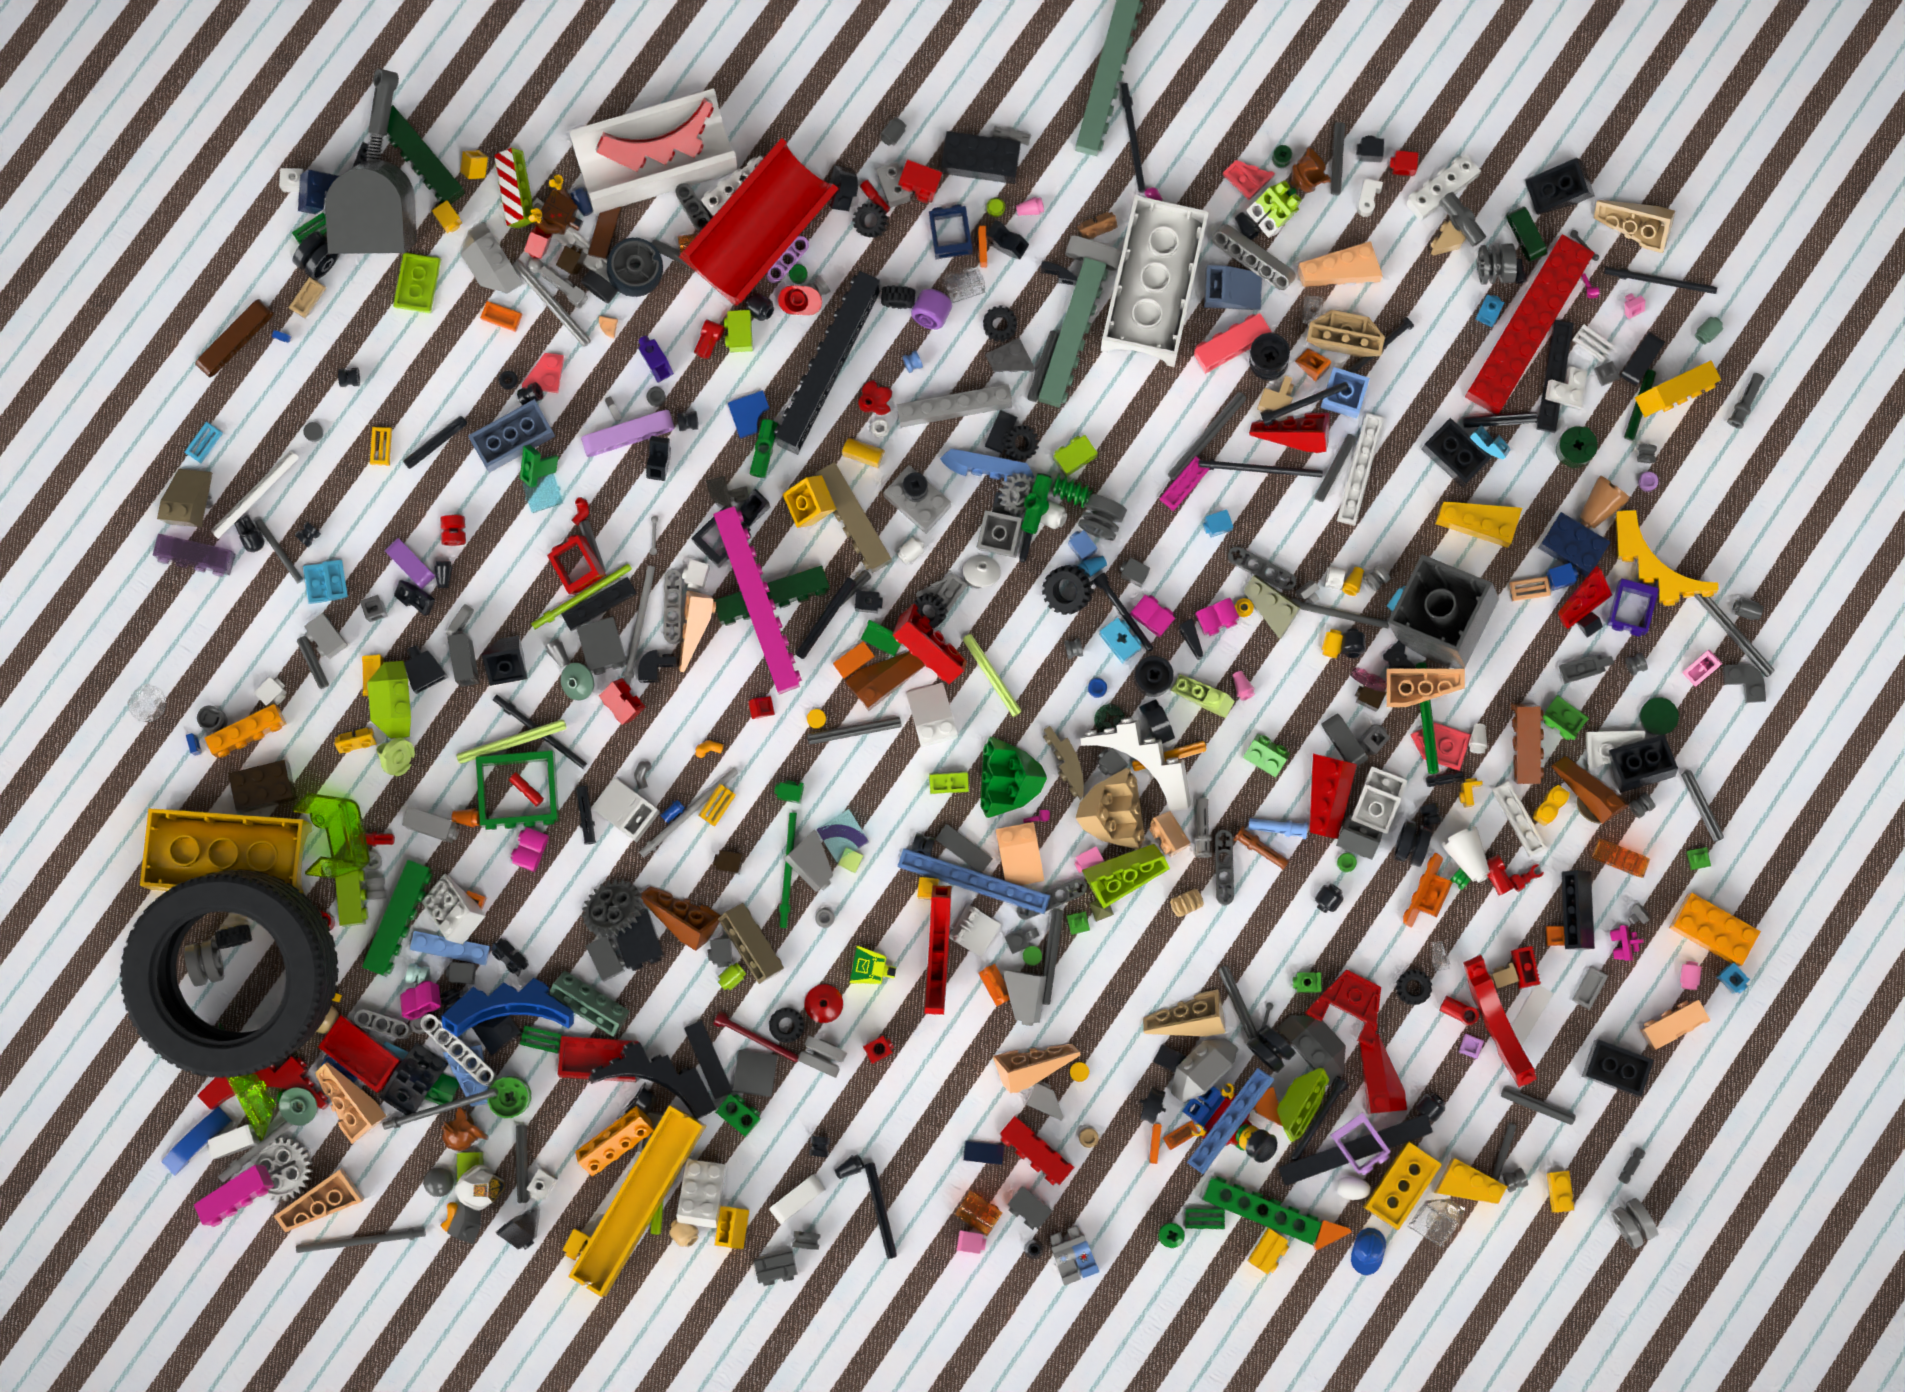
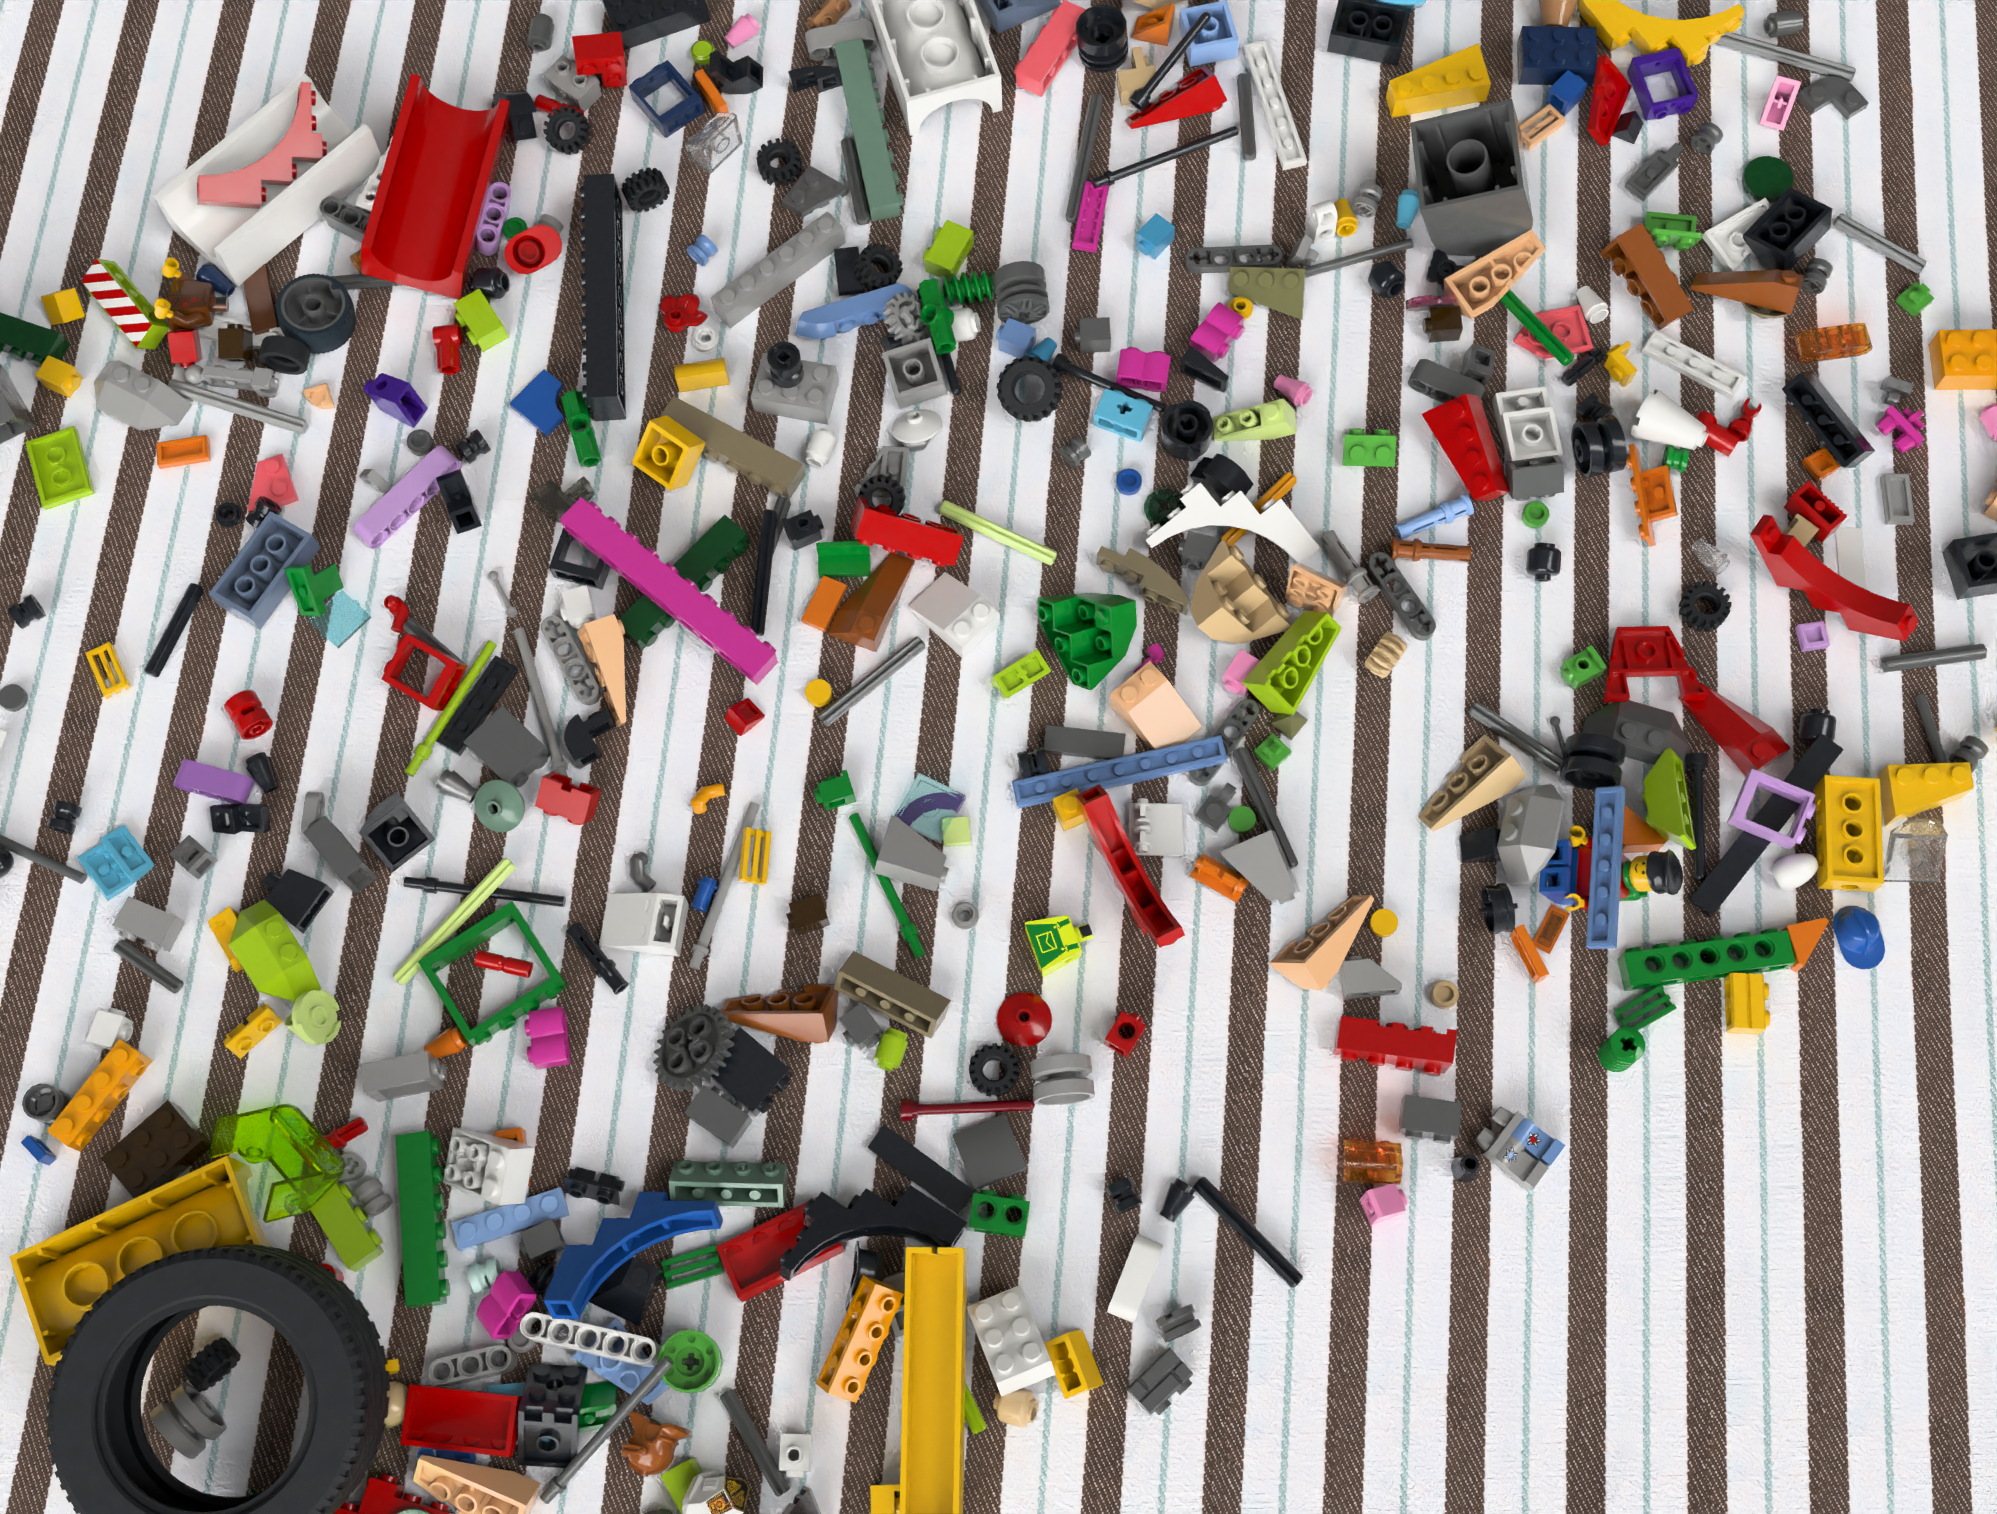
camera: 30 degrees left, 10 degrees down
(754, 507) = (608, 492): black slope -> none
(931, 309) = (691, 183): medium lavender head -> none
(983, 1152) = (1330, 1086): dark blue slope -> none
(1332, 643) = (1364, 292): yellow brick -> none
(1457, 1010) = (1773, 602): red piece -> none
(1549, 809) = (1719, 328): yellow brick -> none

